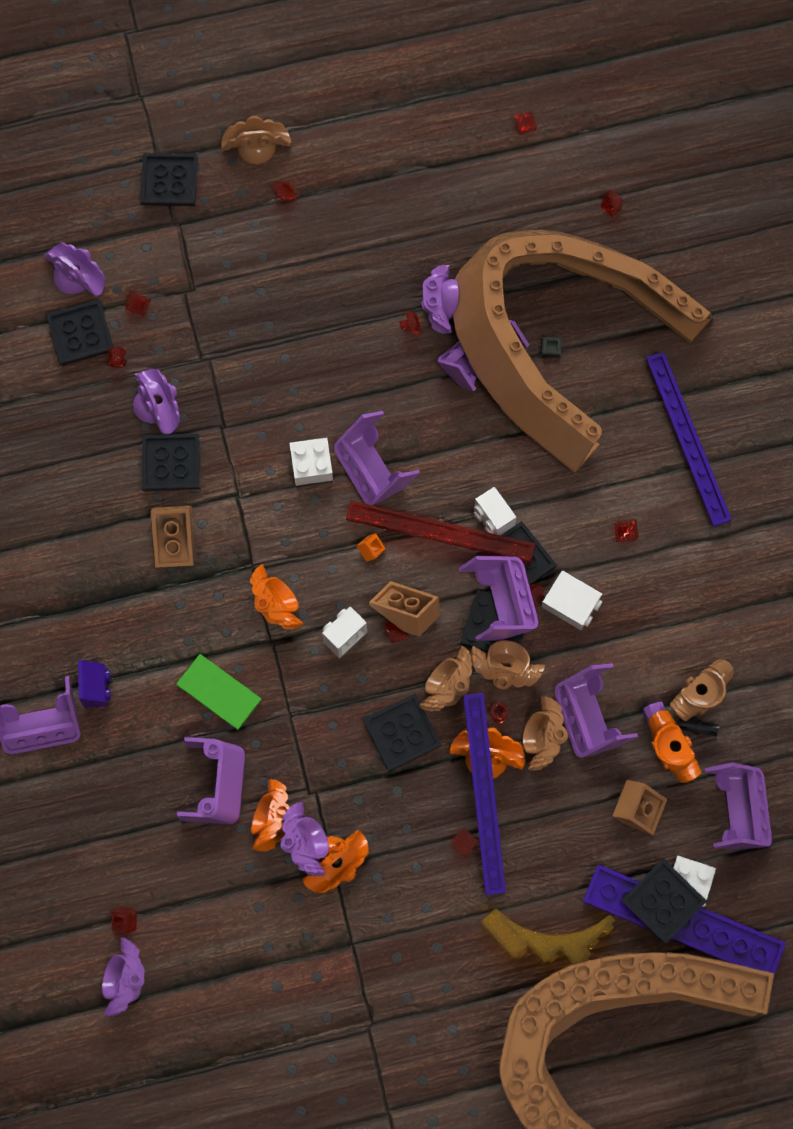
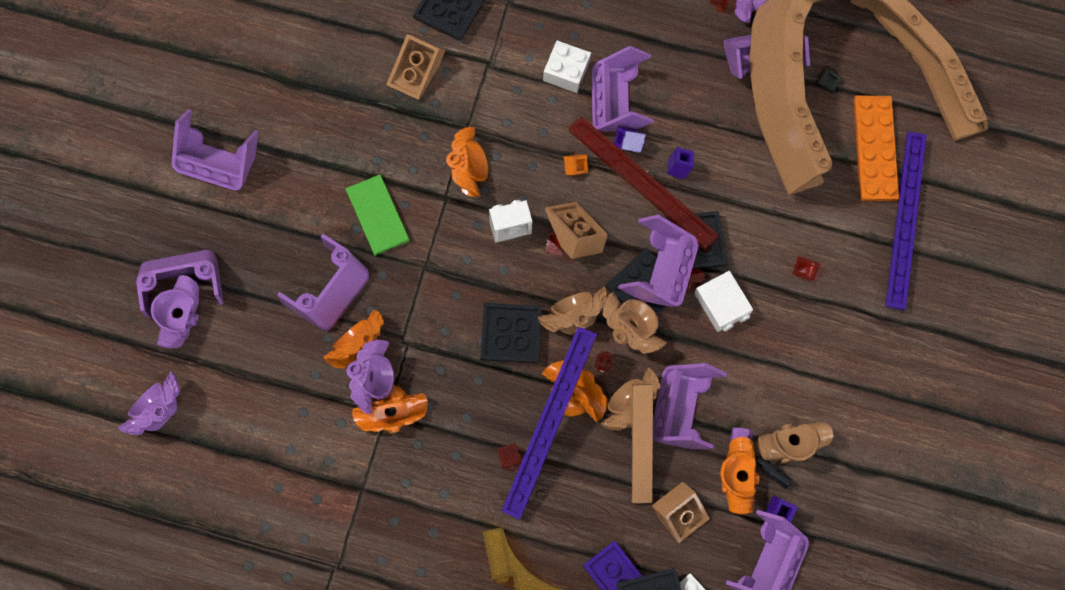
camera: 25 degrees right, 0 degrees up
(46, 856) = (201, 263): none -> medium lavender windscreen
(91, 864) = (183, 296): none -> medium lavender piece
(93, 684) = (275, 150): dark purple slope -> none
(124, 920) = (185, 359): clear red slope -> none
(406, 498) = (629, 139): none -> brick
(464, 495) = (680, 163): none -> dark purple brick
(494, 512) = (698, 189): white brick -> none
(574, 766) = (642, 442): none -> medium nougat tile
(626, 387) = (876, 148): none -> orange plate
(723, 755) = (781, 508): none -> dark purple brick

